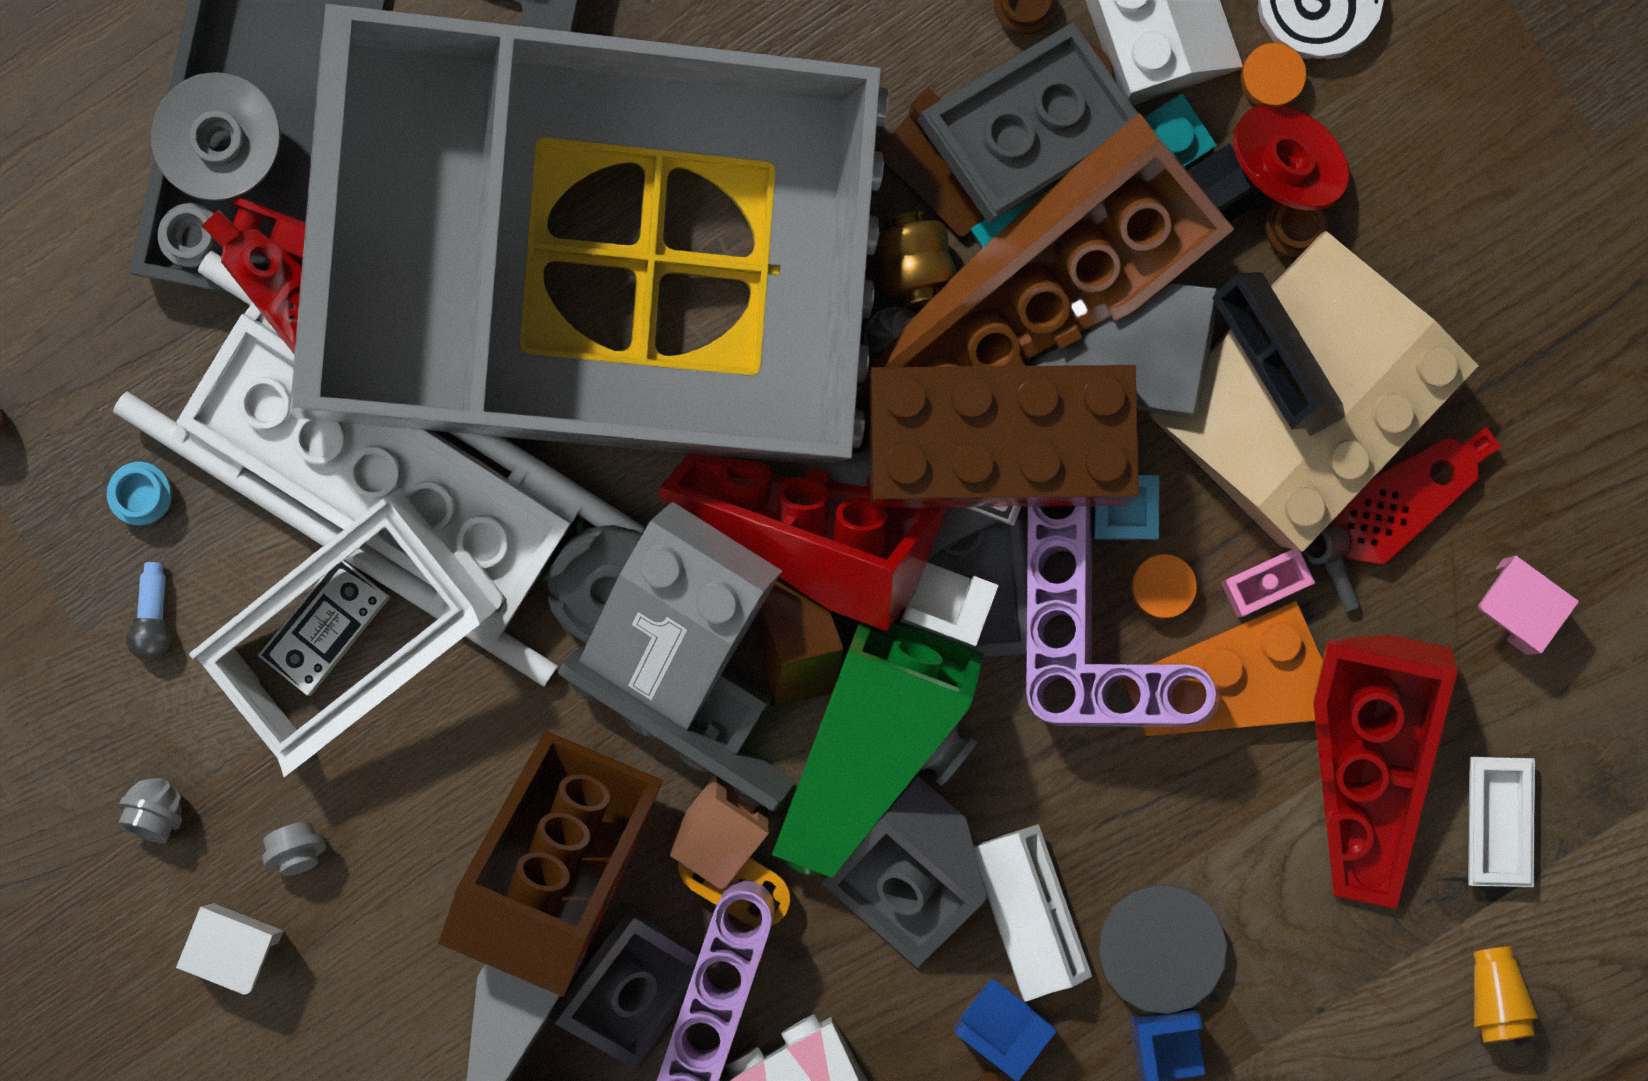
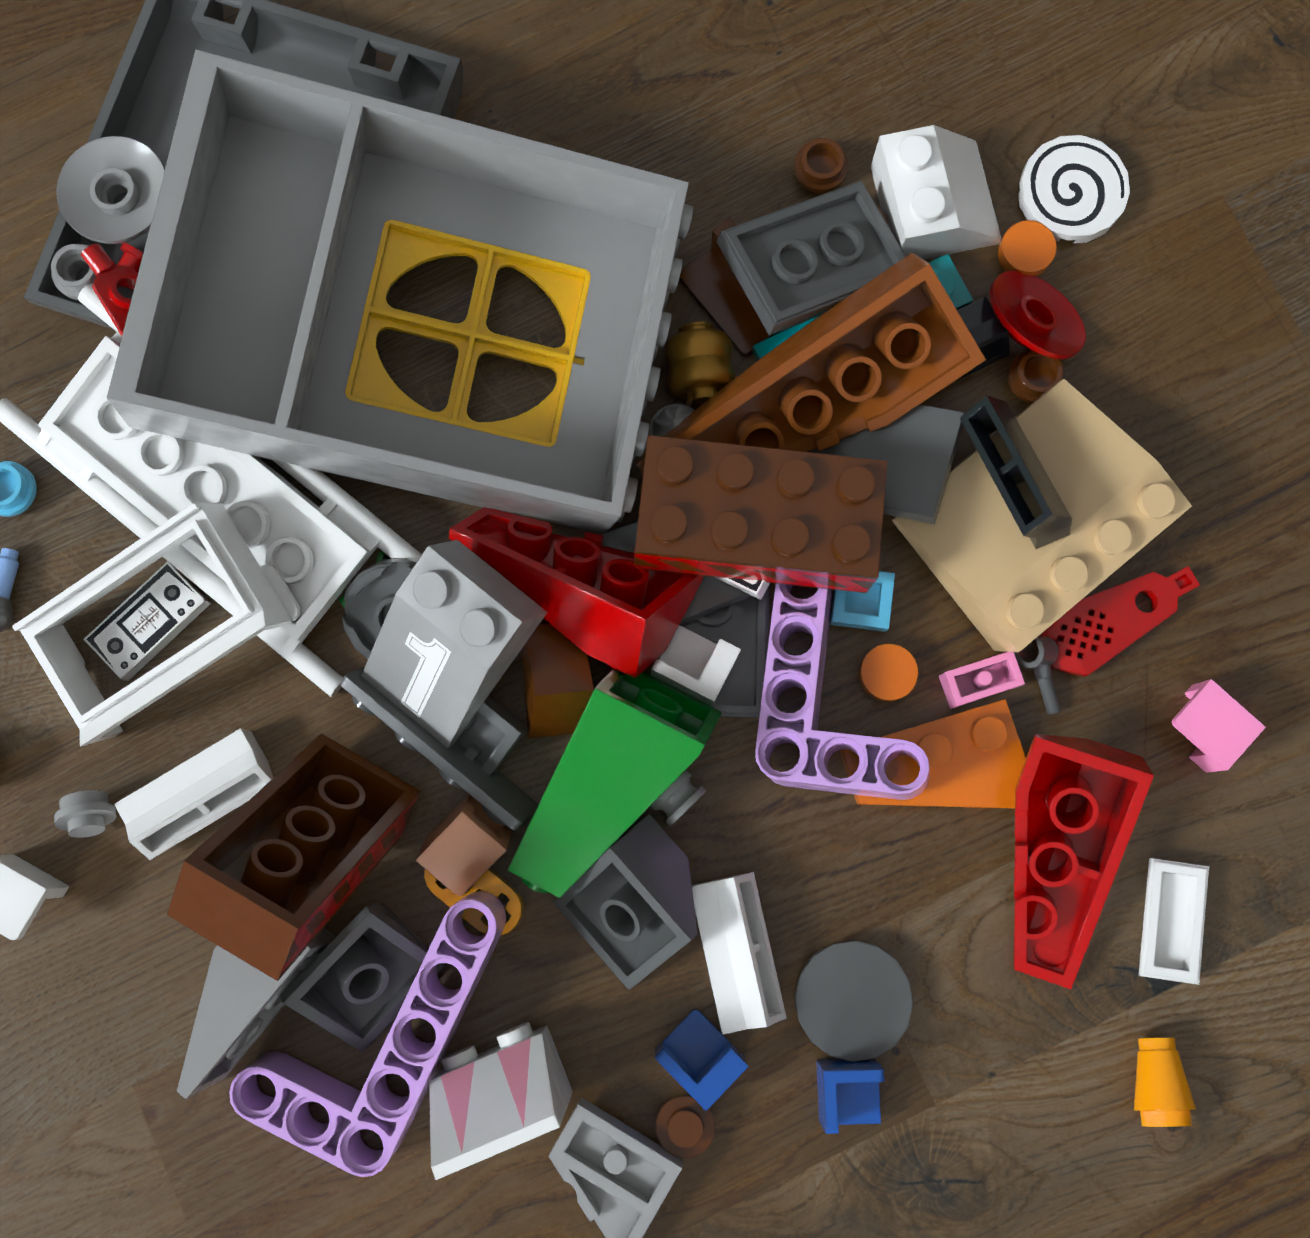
camera: 10 degrees right, 5 degrees down
(412, 812) = (195, 793): none -> white piece

